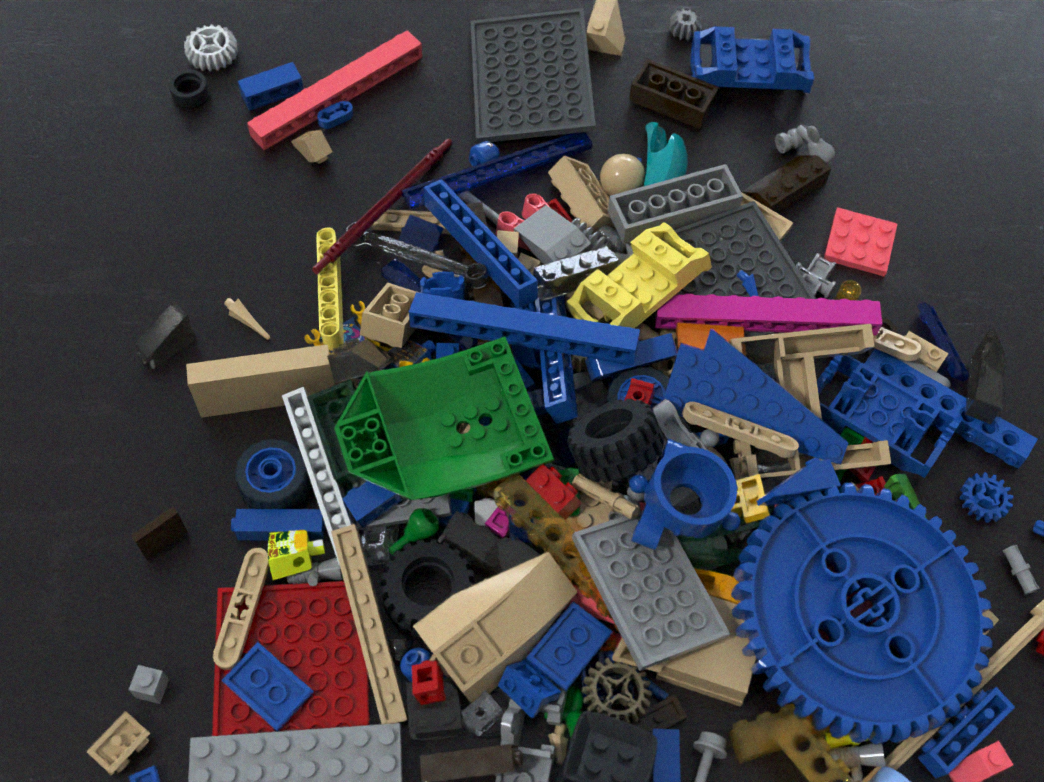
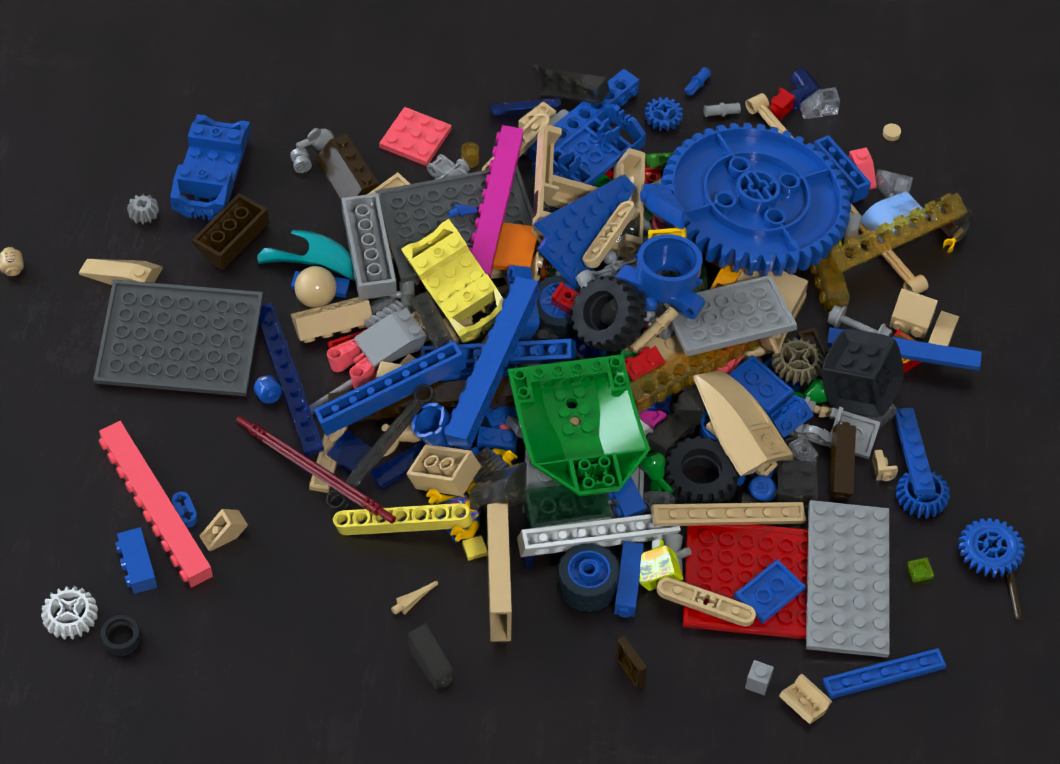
camera: 80 degrees left, 5 degrees down
(428, 682) = (789, 466): red brick -> none

